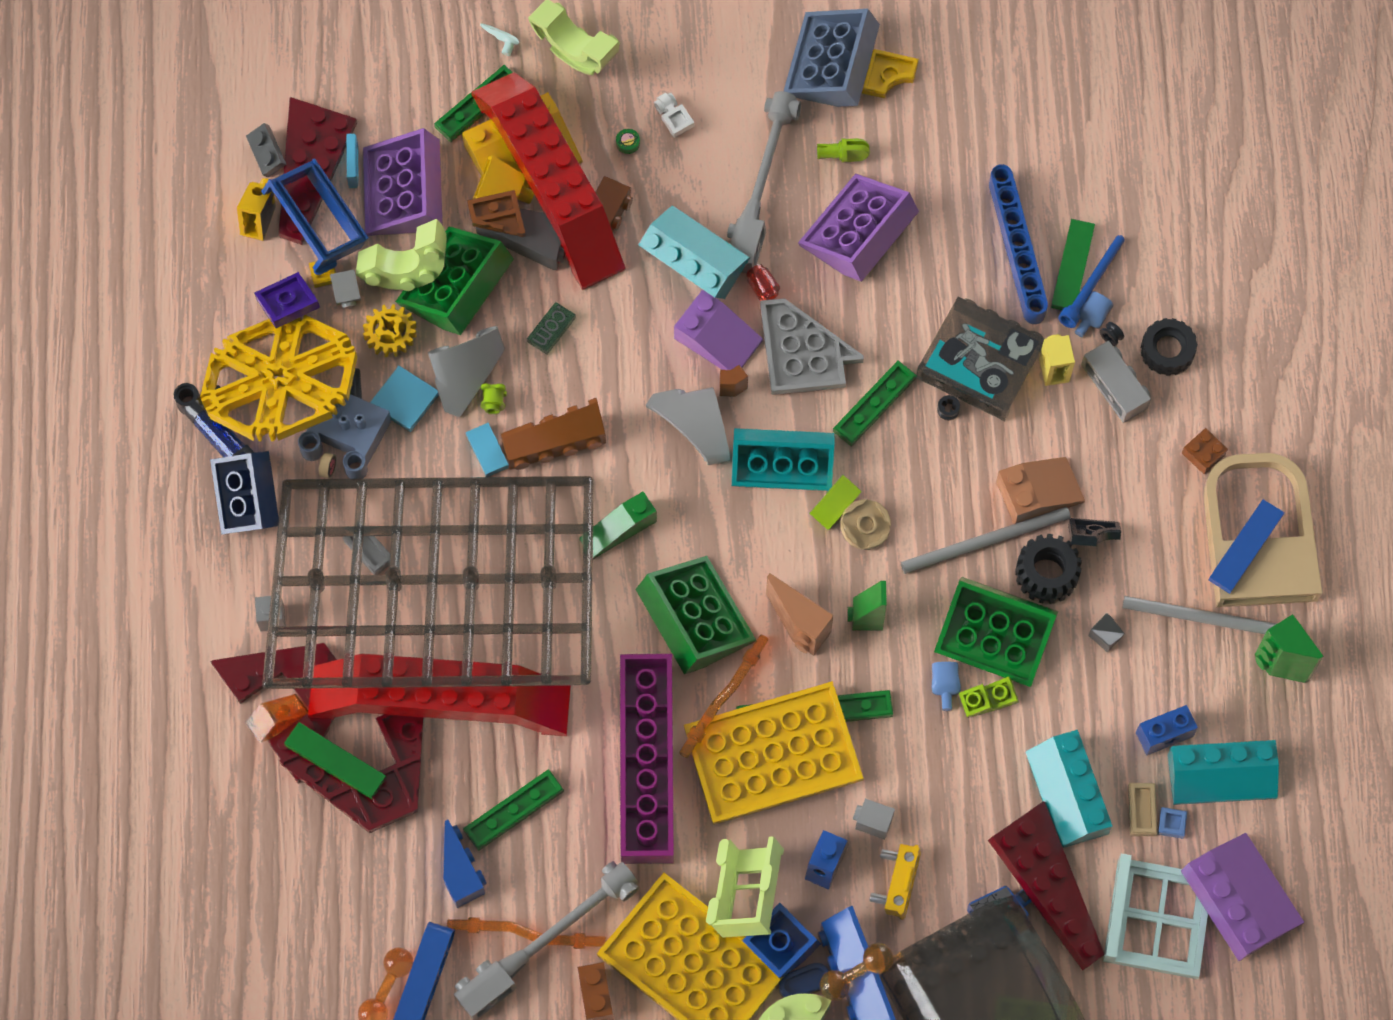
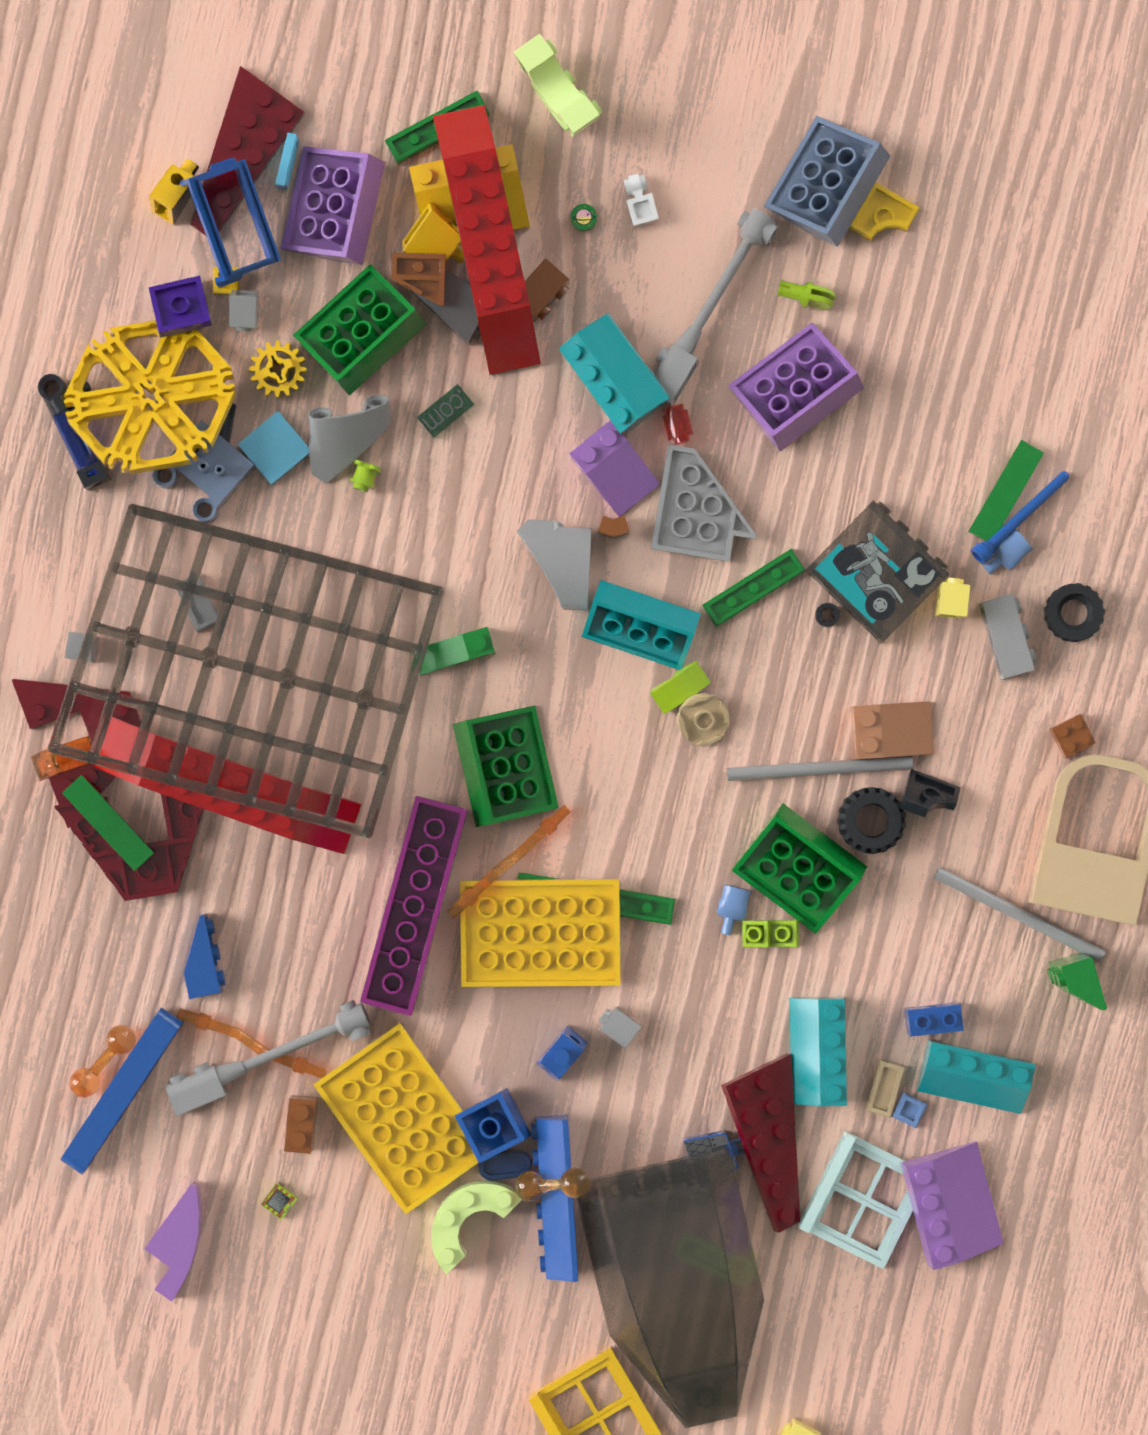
camera: 15 degrees right, 20 degrees up
(245, 492) = (85, 514): dark blue slope -> none
(266, 150) = (200, 122): dark grey plate -> none
(327, 465) = (177, 502): tan tile -> none
(405, 268) = (309, 305): yellowish green brick -> none
(487, 450) = (344, 528): medium azure tile -> none
(503, 36) = (490, 61): light aqua bar -> none
(513, 810) = (272, 915): green tile -> none
(555, 436) = (414, 537): dark orange wedge -> none
(744, 862) = (471, 1030): yellowish green piece -> none
(802, 618) = (608, 808): nougat slope -> none
(869, 609) = (676, 815): green slope -> none
(902, 880) = (628, 1094): yellow piece -> none
(1018, 254) = (959, 441): blue beam -> none
(1106, 632) = (909, 900): dark grey slope -> none
(1112, 333) = (1020, 582): black bush -> none
(1246, 546) = (1076, 857): blue tile -> none

